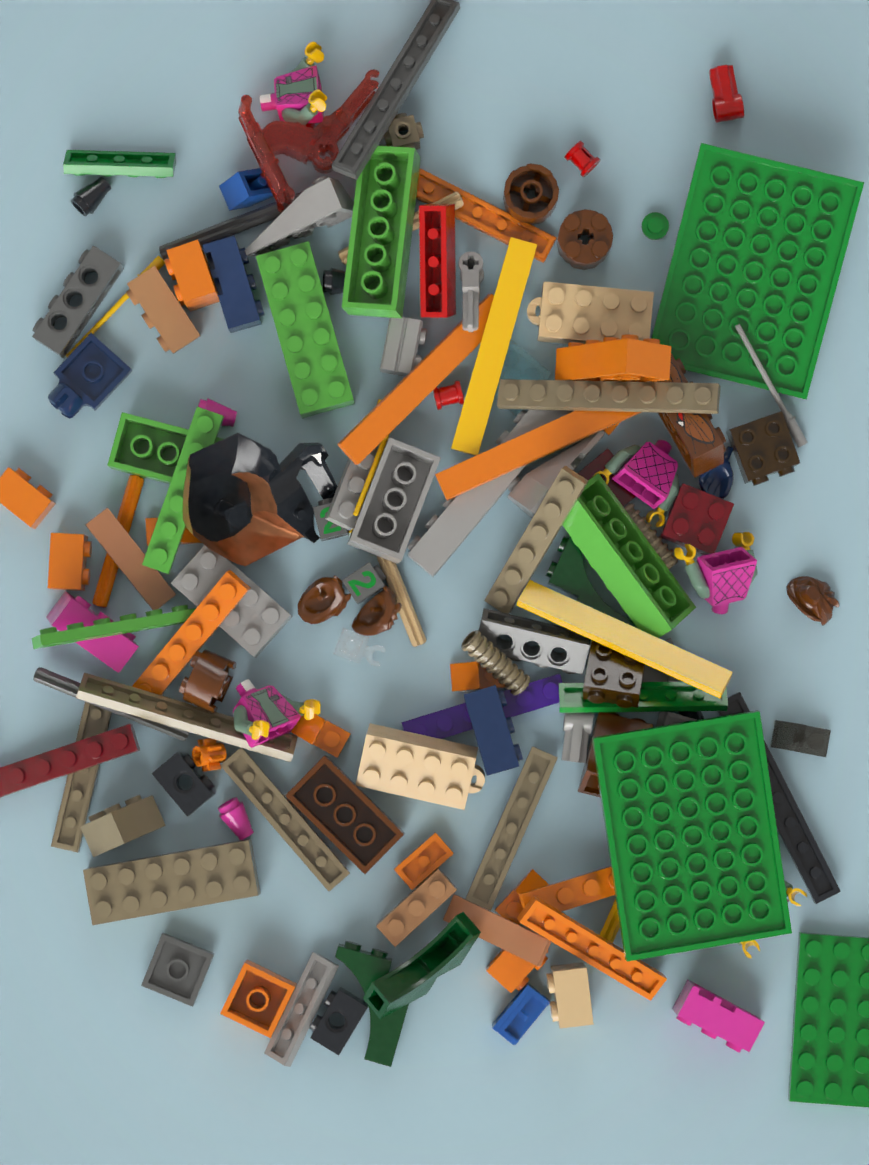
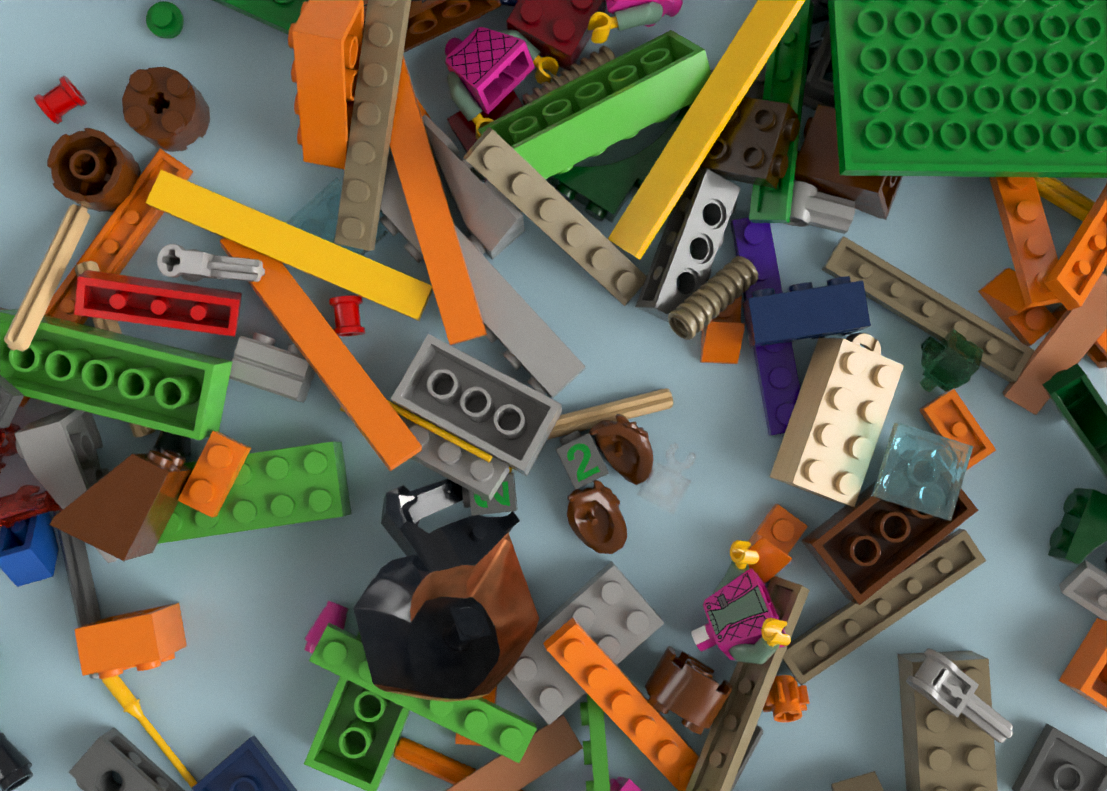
camera: 85 degrees left, 0 degrees up
(162, 310) = (174, 687): medium nougat brick -> none
(169, 774) = (840, 737): black brick -> none
(232, 866) = (954, 694): none -> light grey connector
(233, 284) = (151, 584): dark blue wedge -> none
(236, 818) = (872, 672): dark pink cone -> none
(289, 267) = (128, 505): none -> reddish brown slope
(319, 319) = (214, 474): none -> orange plate
(386, 826) = (922, 471): none -> clear light blue plate
(416, 907) = (1022, 448): medium nougat brick -> none
(445, 179) = (47, 279): none -> tan axle
(472, 846) = (949, 362): none -> clear green piece
(590, 313) = (259, 121): tan piece -> none

